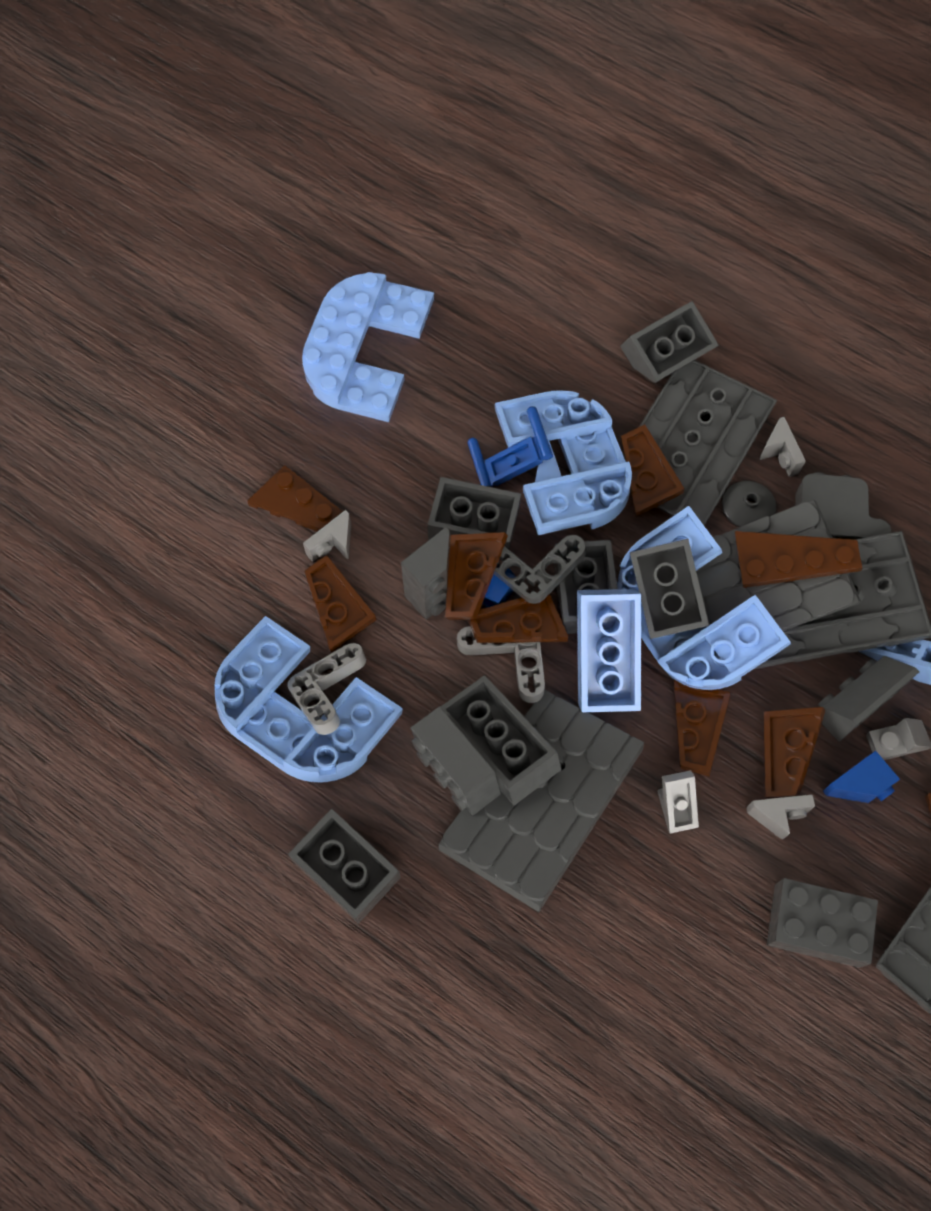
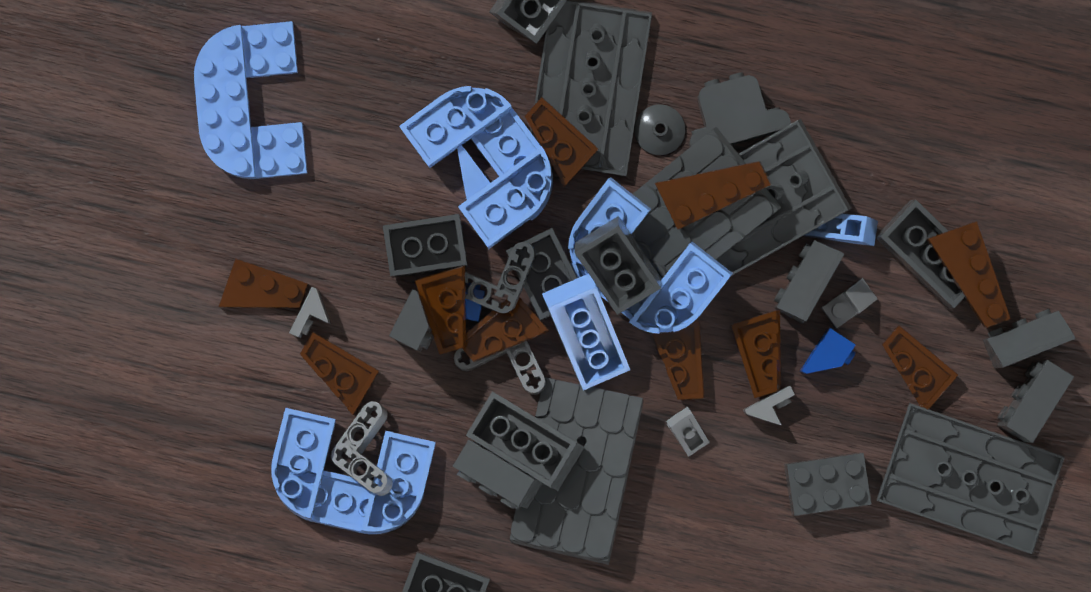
camera: 20 degrees left, 20 degrees up
(514, 459) = (438, 176): blue plate -> none
(784, 444) = (668, 57): light grey slope -> none

